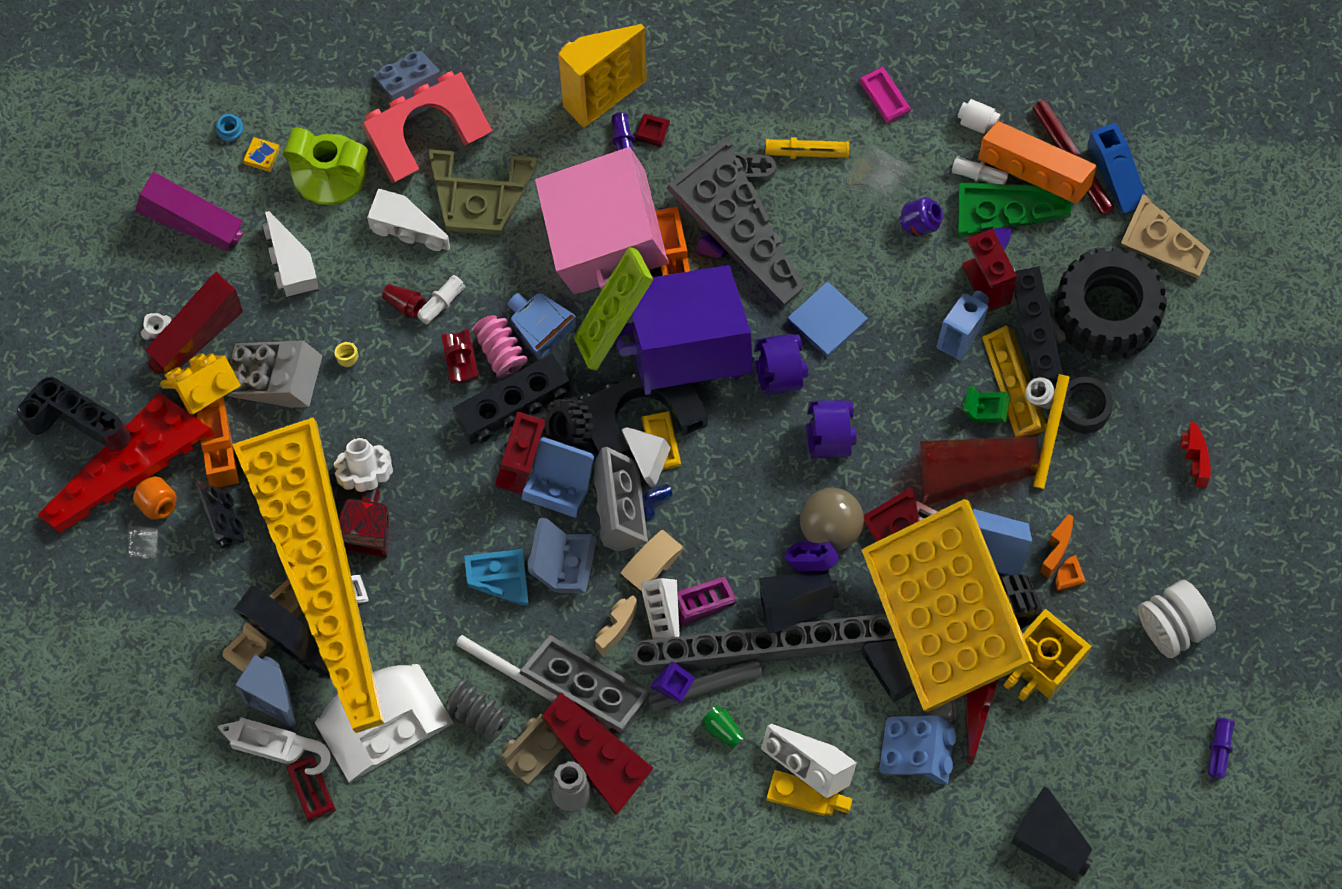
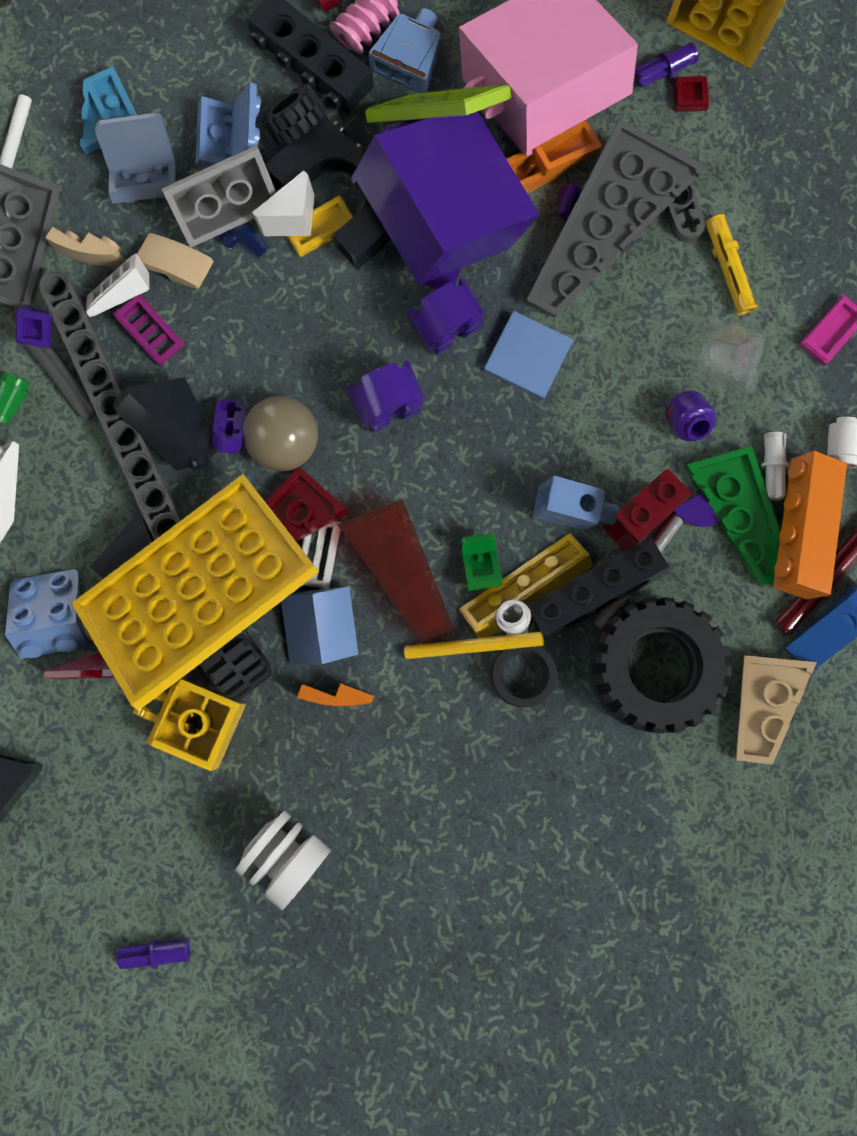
camera: 65 degrees right, 15 degrees up
(519, 453) = (229, 64): dark red panel -> none
(1069, 574) = (310, 719): orange tile -> none
(1196, 449) = (515, 817): red slope -> none

